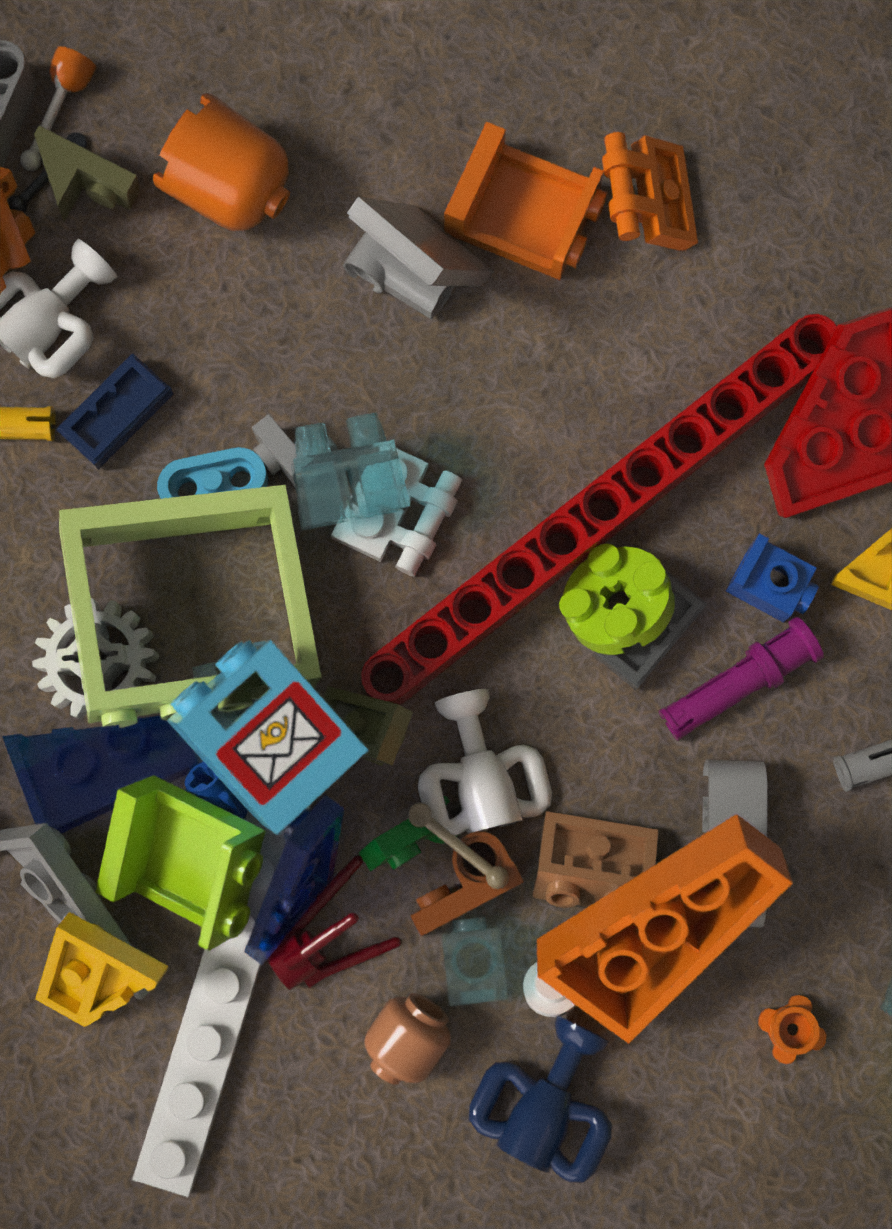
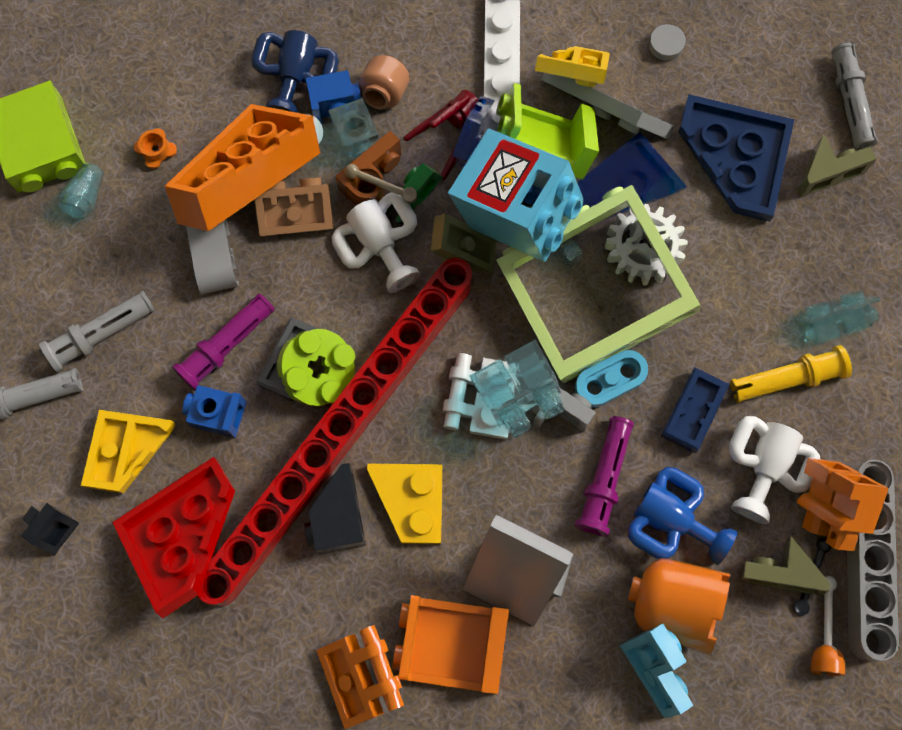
camera: 165 degrees right, 5 degrees down
(193, 279) = (676, 518): none -> blue piece
(277, 336) = (601, 493): none -> magenta pin
(278, 105) = (654, 658): none -> medium azure plate
(493, 1035) = (331, 92): none -> blue brick
(530, 397) = (411, 499): none -> yellow wing
(636, 392) = (336, 515): none -> black slope

